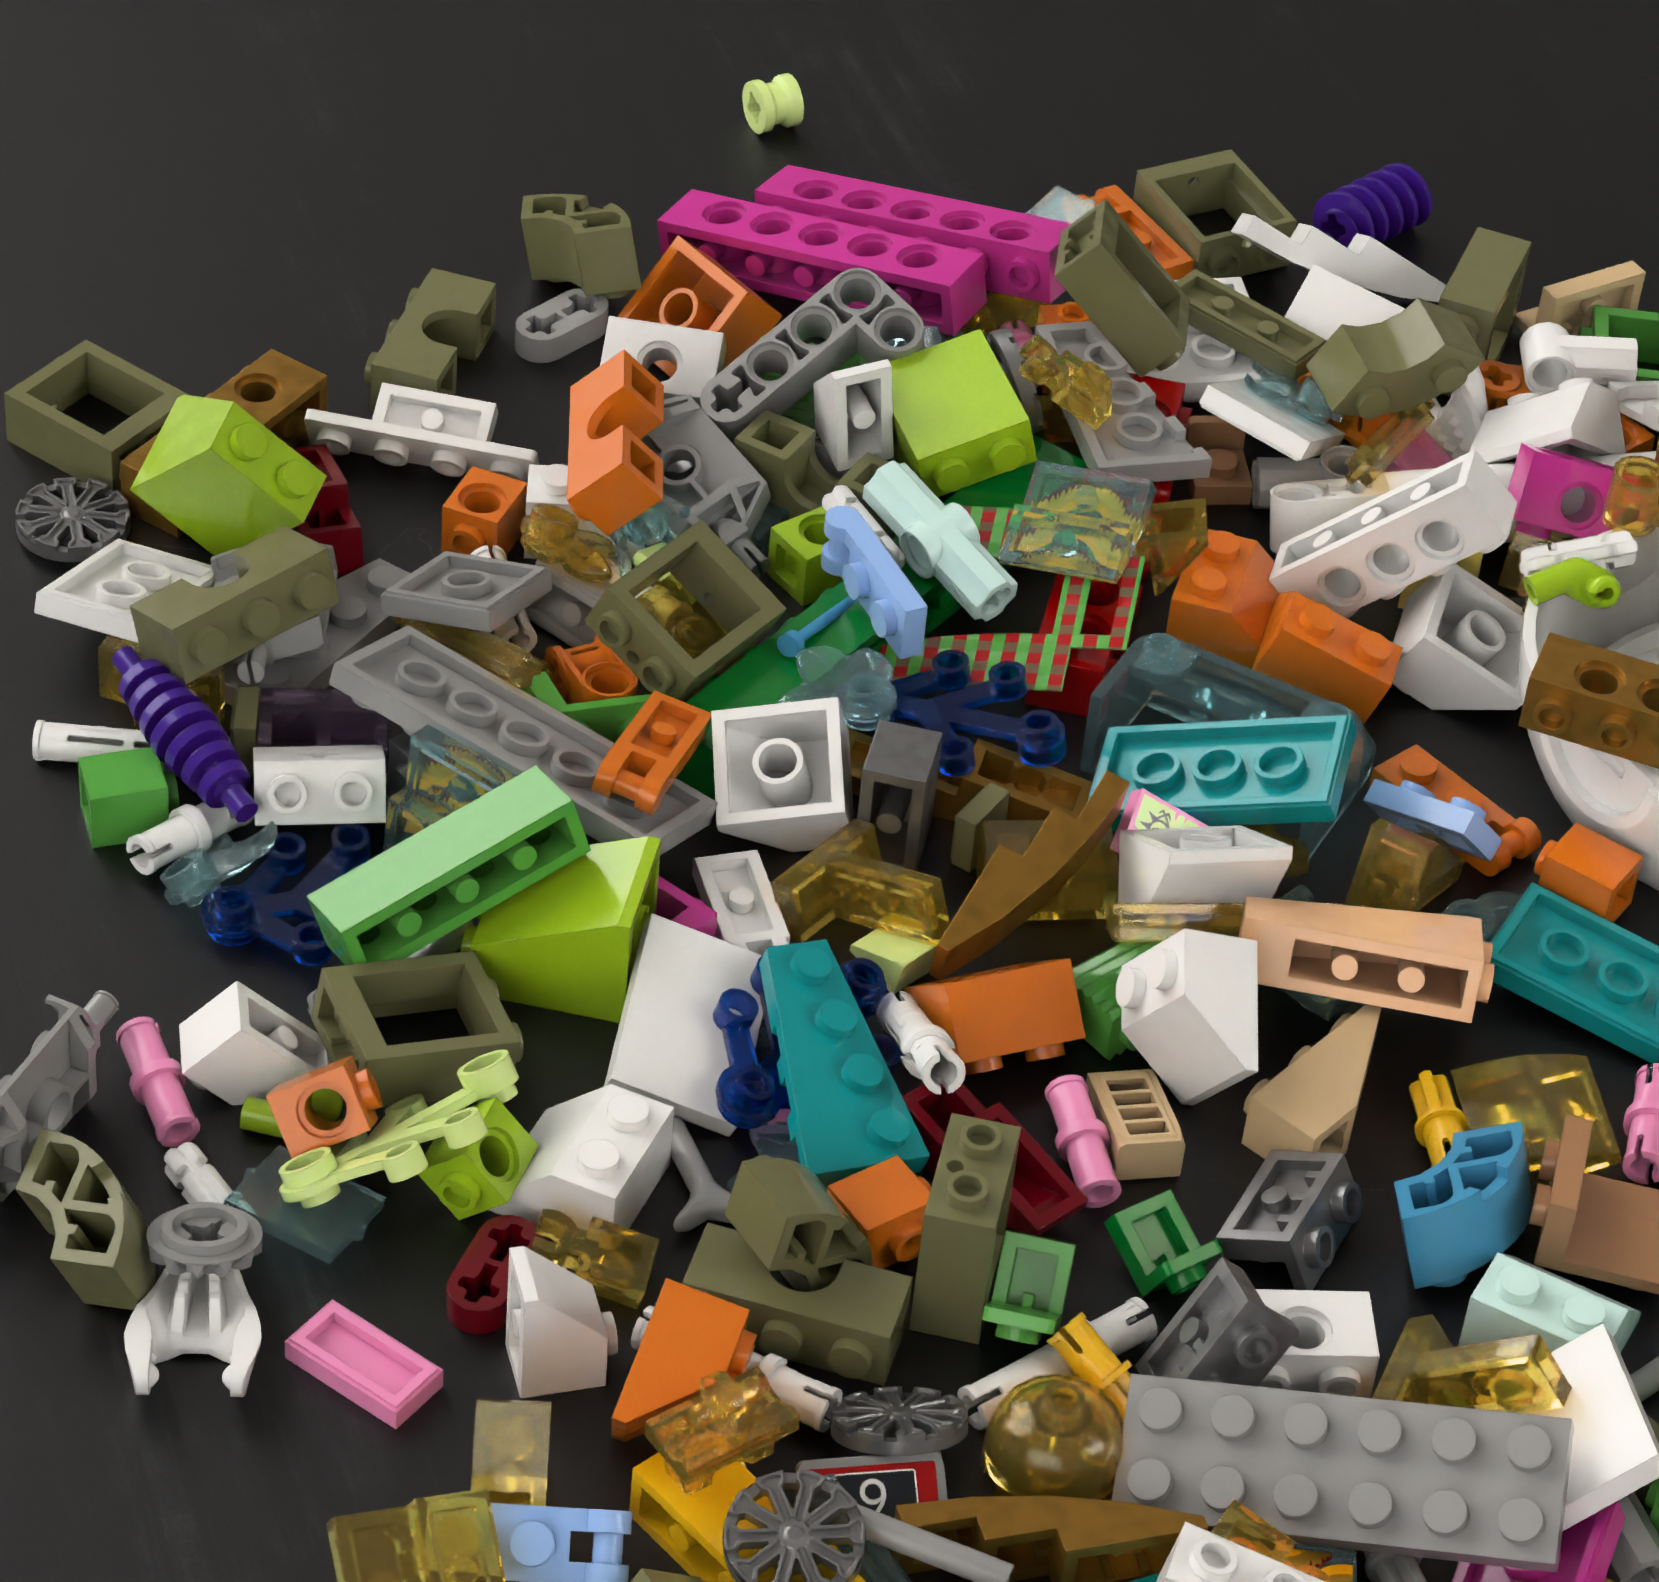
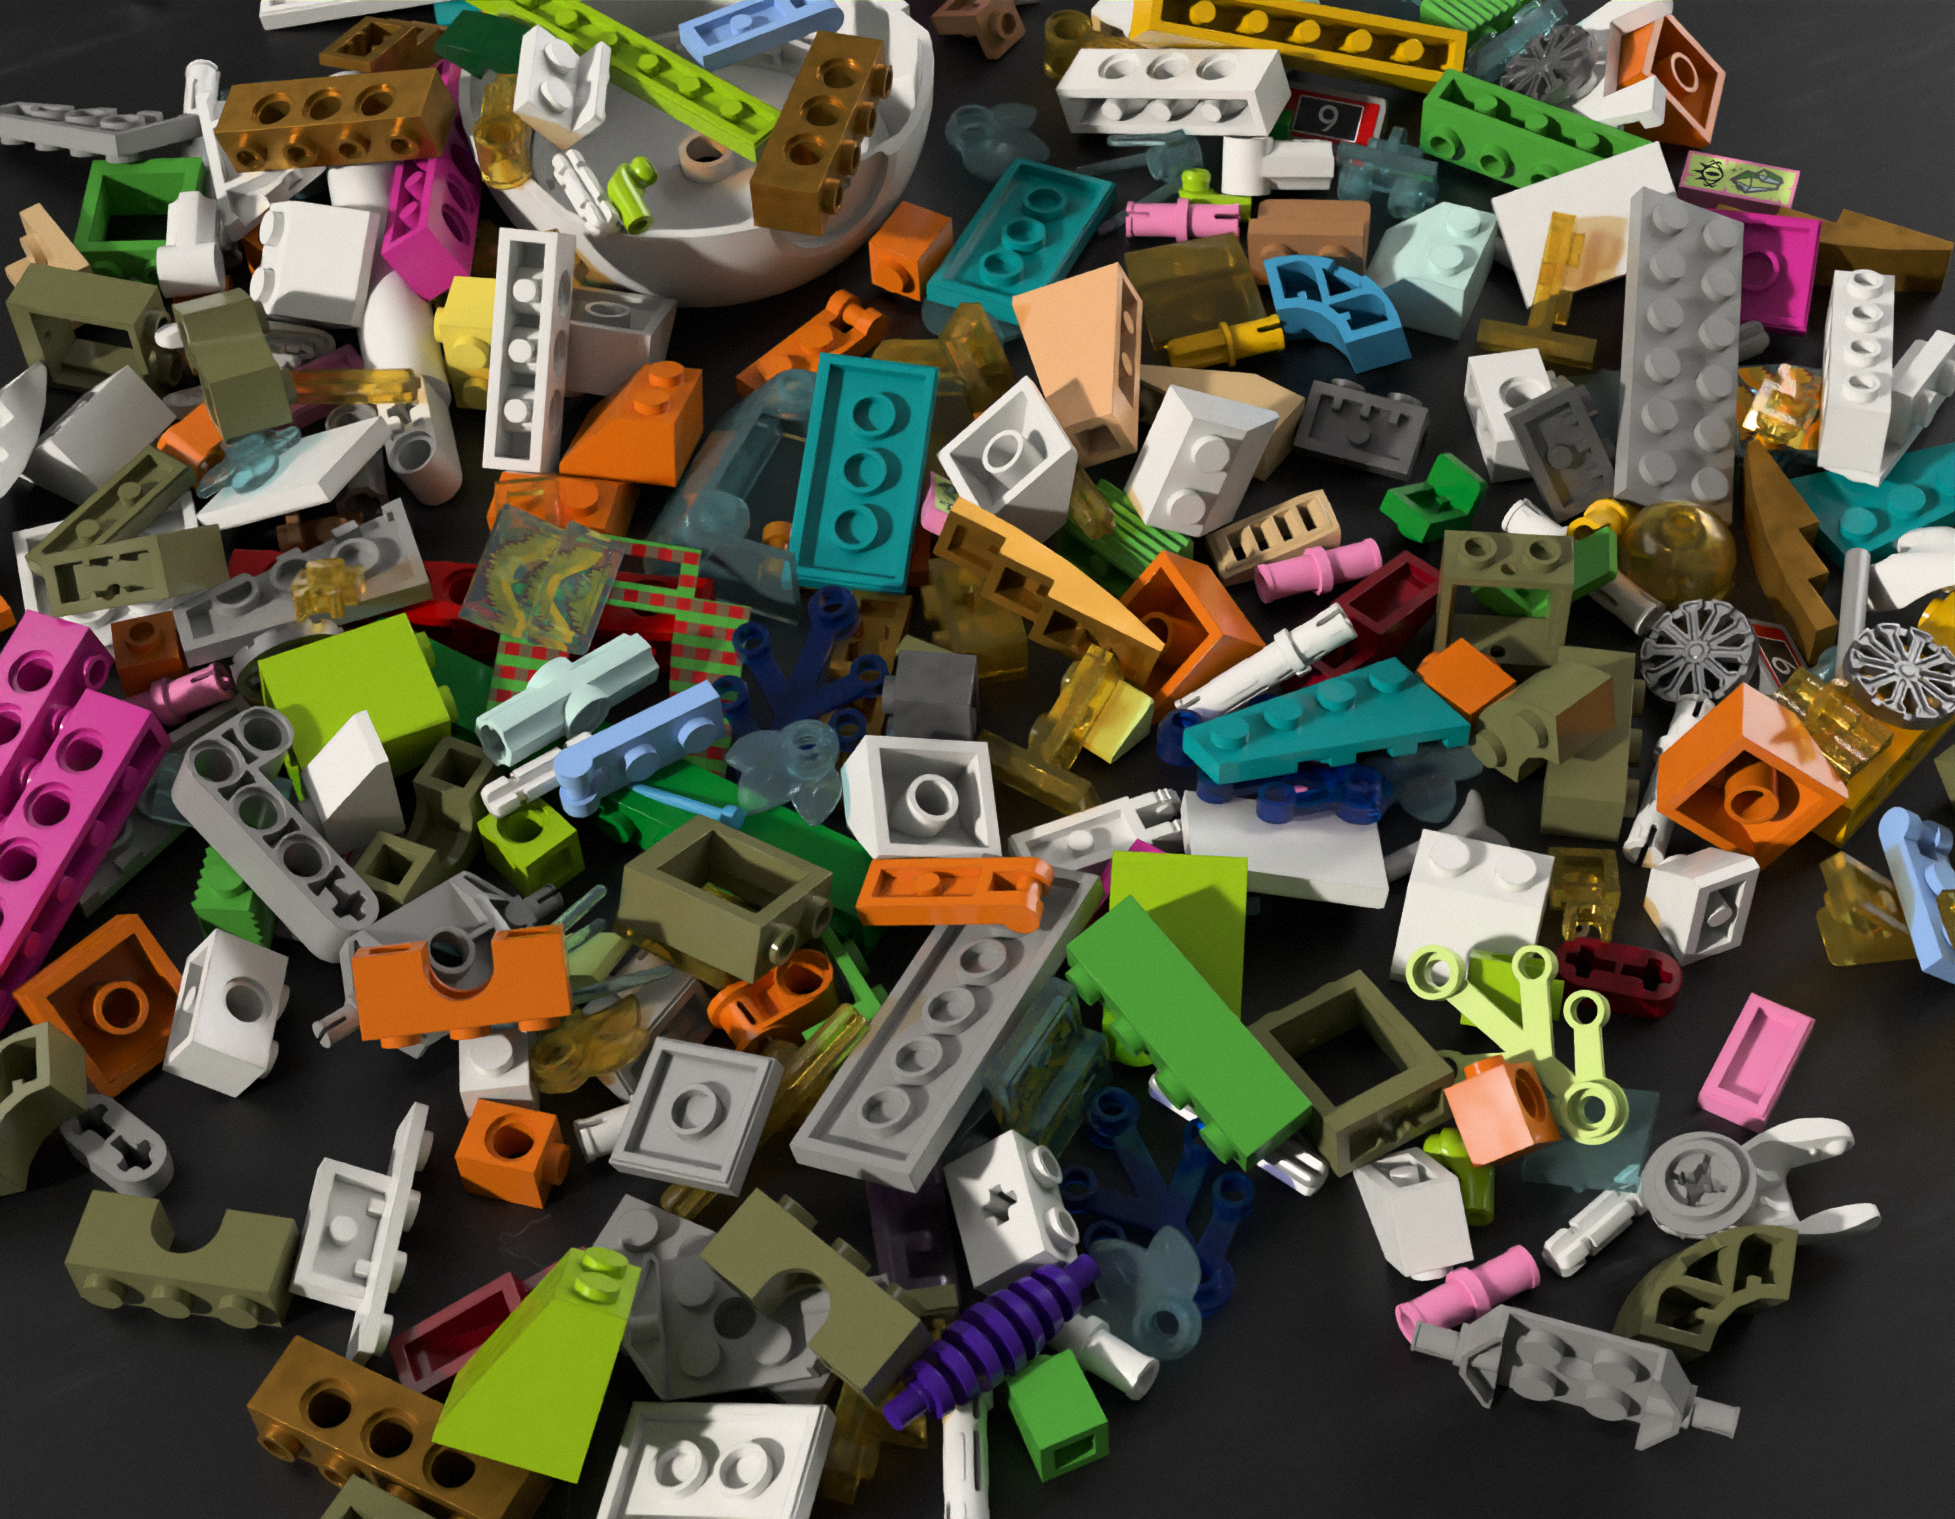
camera: 90 degrees left, 10 degrees up
(1418, 810) = (875, 326): light blue plate -> none

